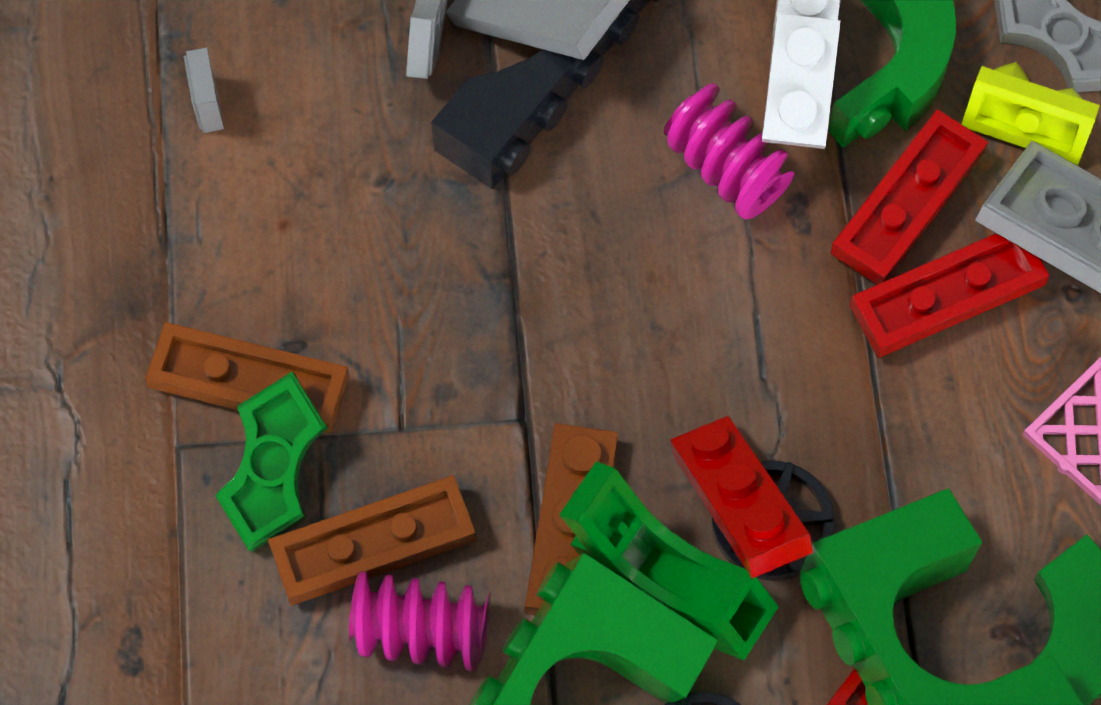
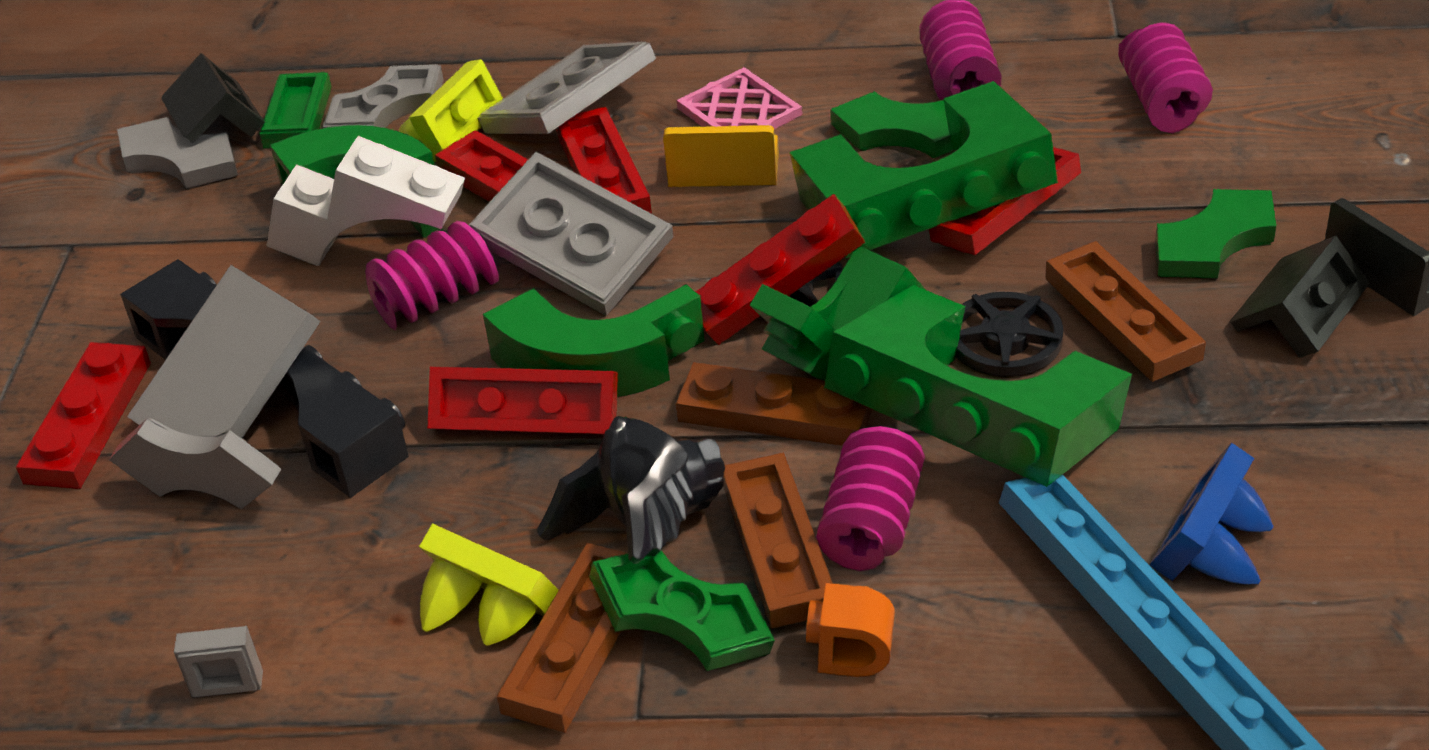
camera: 80 degrees left, 25 degrees down
(254, 615) = (851, 630): none -> orange plate
(316, 278) = (462, 568): none -> neon yellow tile
(414, 409) = (644, 481): none -> black helmet
(545, 276) = (522, 400): none -> red plate
(621, 285) = (637, 345): none -> green arch
(807, 275) = (571, 233): none -> light grey tile
(984, 421) = (721, 156): none -> yellow panel

